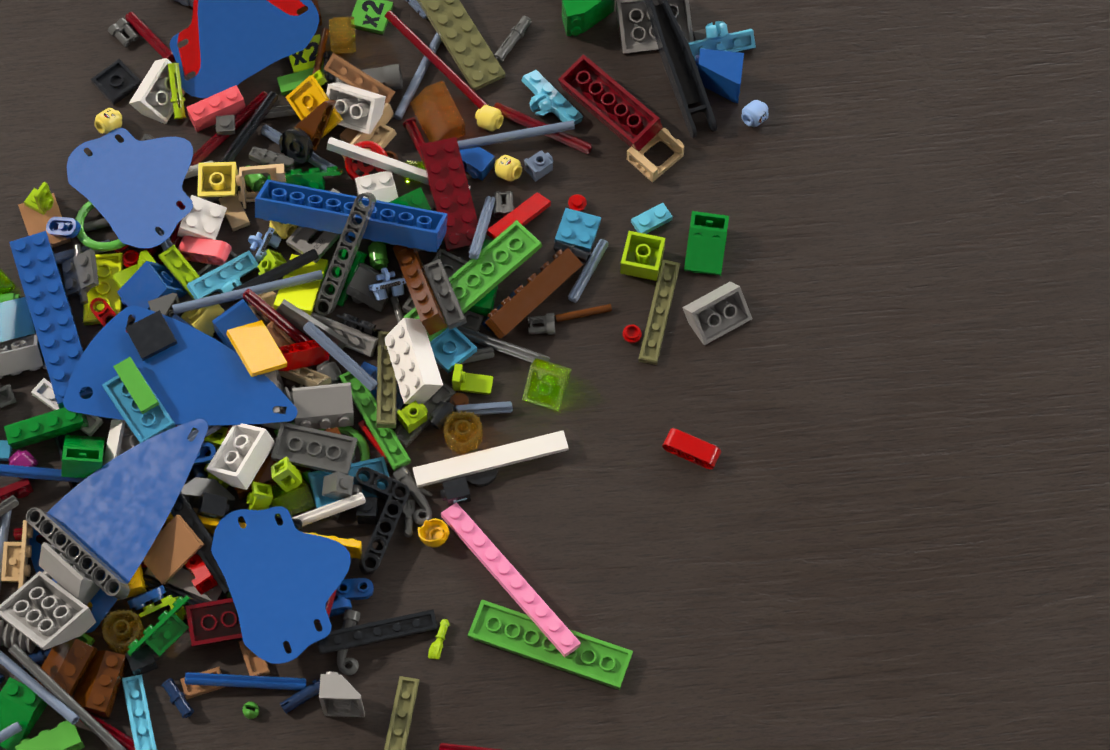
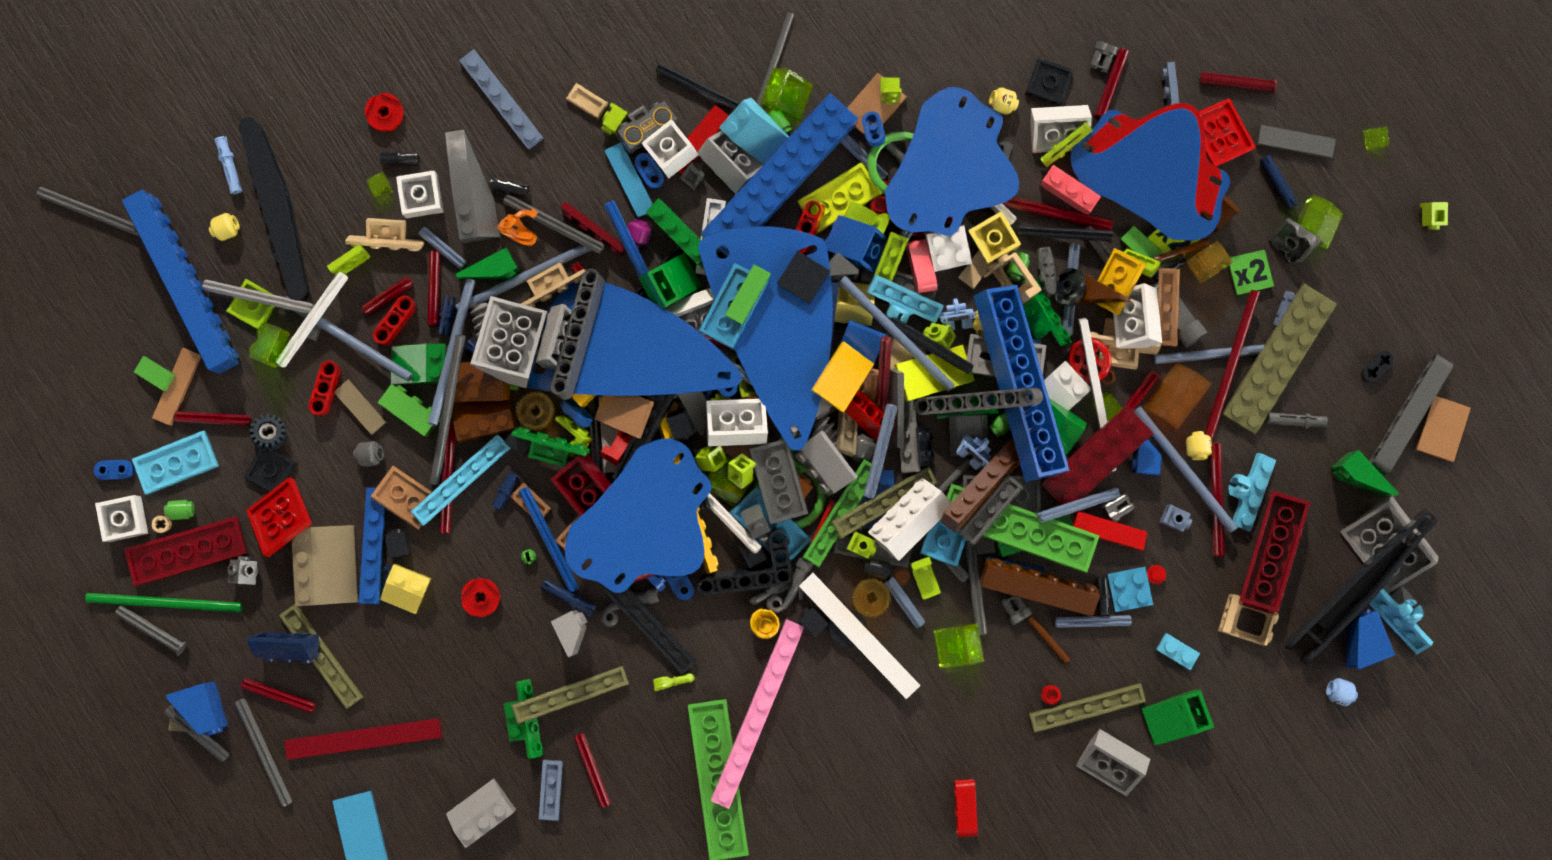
camera: 60 degrees right, 20 degrees up
(80, 274) = (839, 171): dark grey plate -> none
(225, 125) = (1057, 209): dark grey plate -> none
(508, 168) = (1156, 492): light yellow head -> none
(642, 255) = (1132, 665): lime brick -> none

